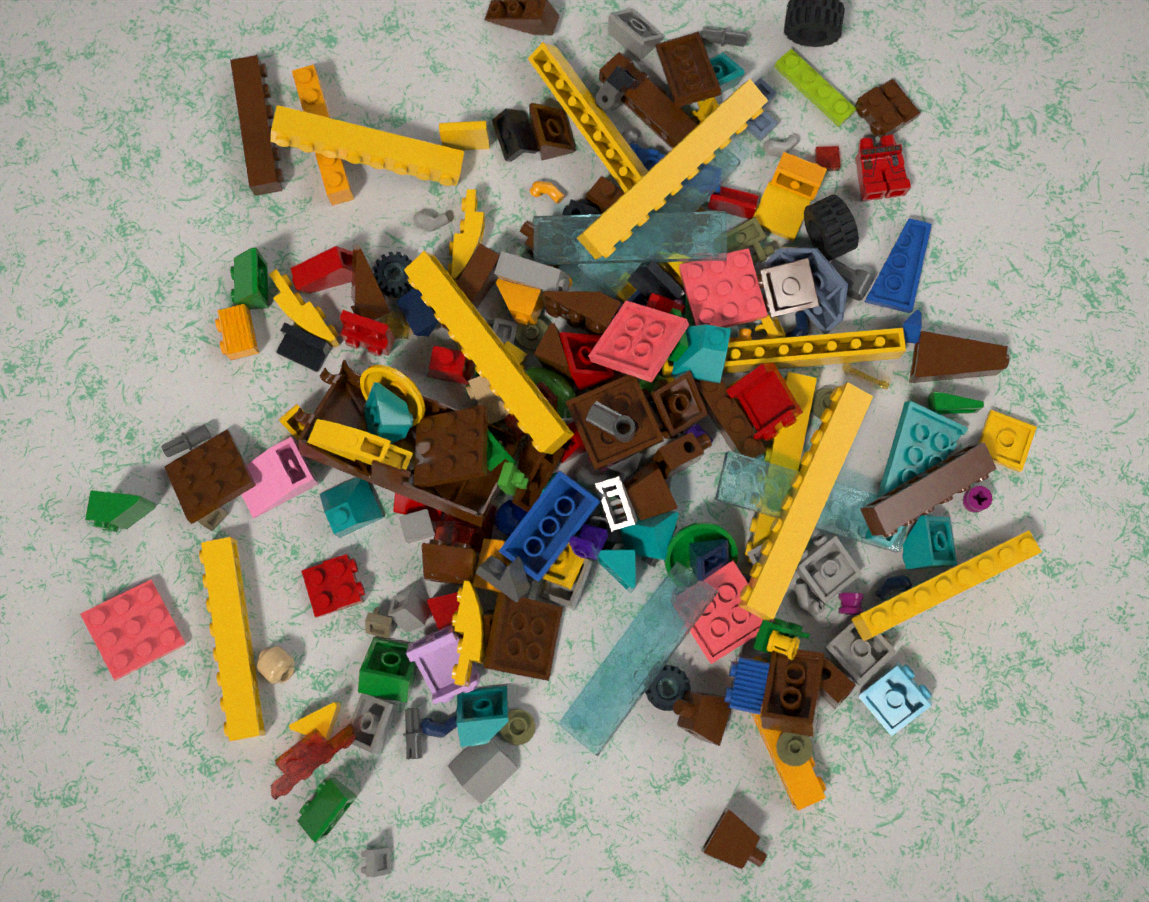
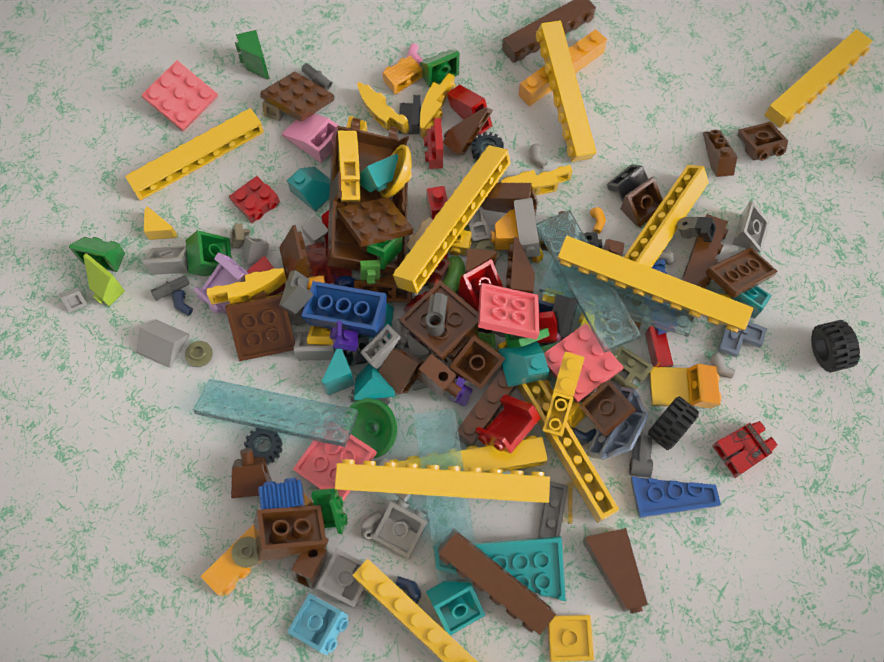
camera: 65 degrees right, 10 degrees down
(212, 307) = (413, 52): none -> bright pink arm
(269, 383) = (378, 109): none -> yellow slope
(276, 665) = (187, 185): tan head -> none
(306, 756) = (131, 225): clear red bracket -> none
(373, 818) = (102, 282): none -> lime slope
(398, 325) = (453, 165): clear yellow tile -> none
(417, 313) = (457, 175): dark blue slope -> none
(465, 135) = (607, 148): yellow tile -> none
(481, 714) = (197, 322): teal slope -> none
(708, 557) = (368, 429): dark blue slope -> none
(723, 37) = (784, 291): dark grey axle -> none
(733, 842) = (163, 538): reddish brown torso -> none
(757, 327) = (563, 393): none -> yellow slope
(783, 644) = (321, 509): yellow bush -> none
(815, 88) = (783, 374): lime plate -> none
(828, 157) = (732, 405): clear red tile -> none
(850, 603) = (380, 558): magenta wheel -> none
(881, 406) = (553, 511): none -> dark grey tile
(886, 109) = (798, 434): reddish brown plate -> none
(912, 327) = (625, 519): blue slope -> none
(951, 404) = (577, 576): green slope -> none
(971, 499) = (509, 631): magenta wheel -> none

